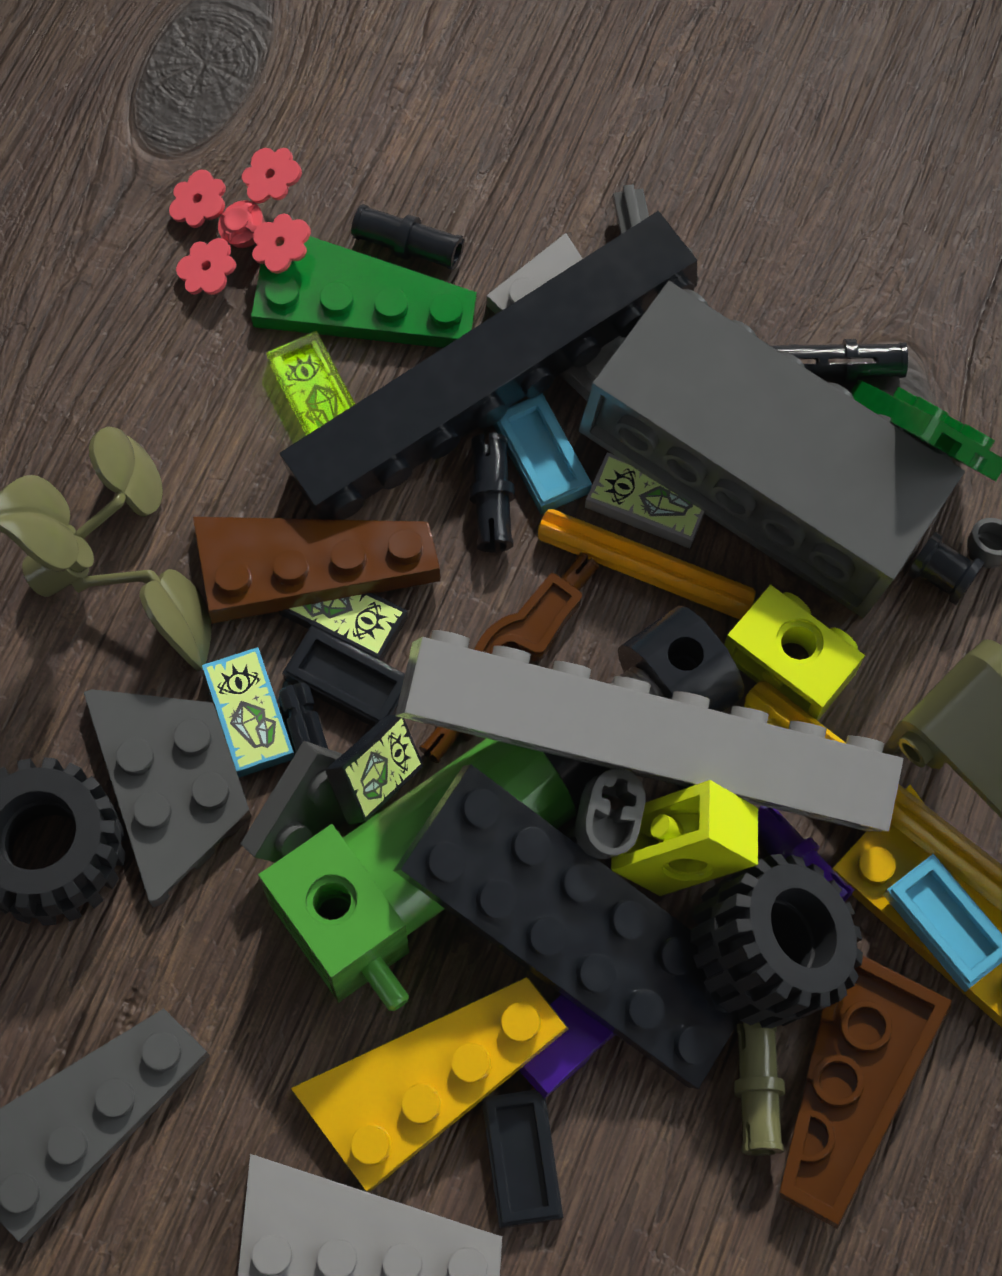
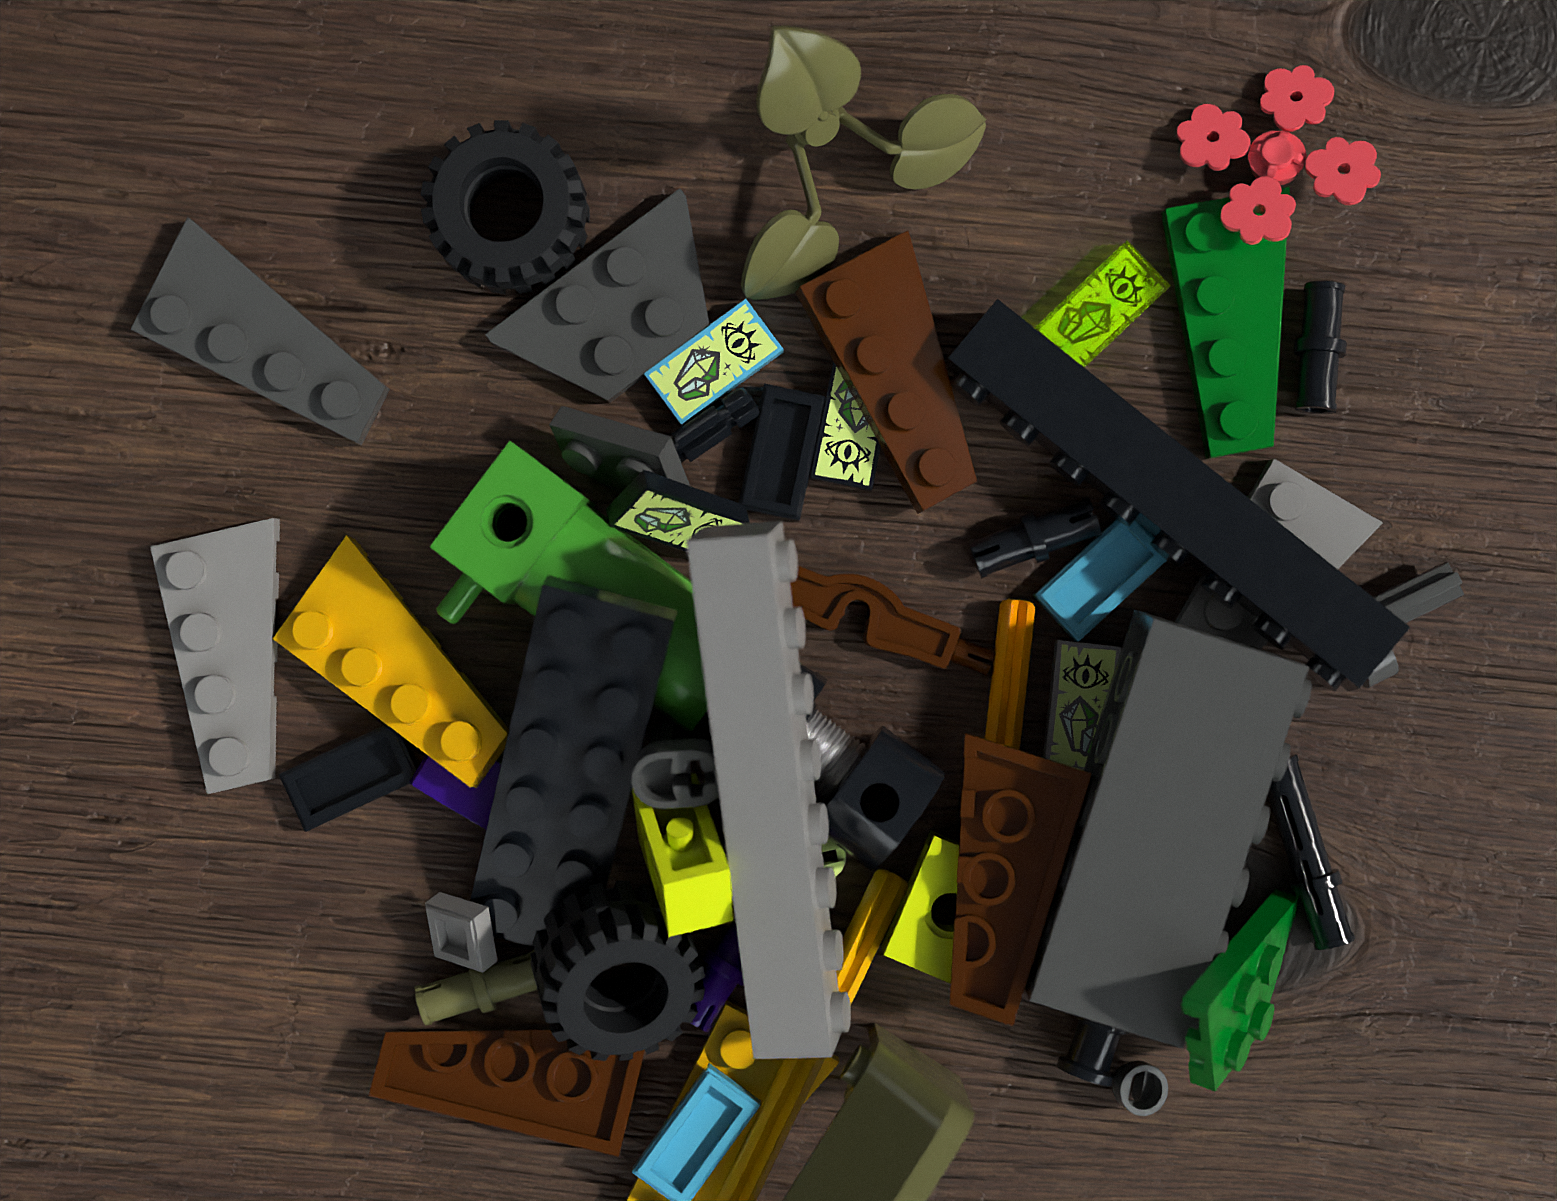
camera: 75 degrees right, 20 degrees up
(701, 1087) = (461, 932): none -> light grey tile
(768, 574) = (1010, 858): none -> reddish brown wing

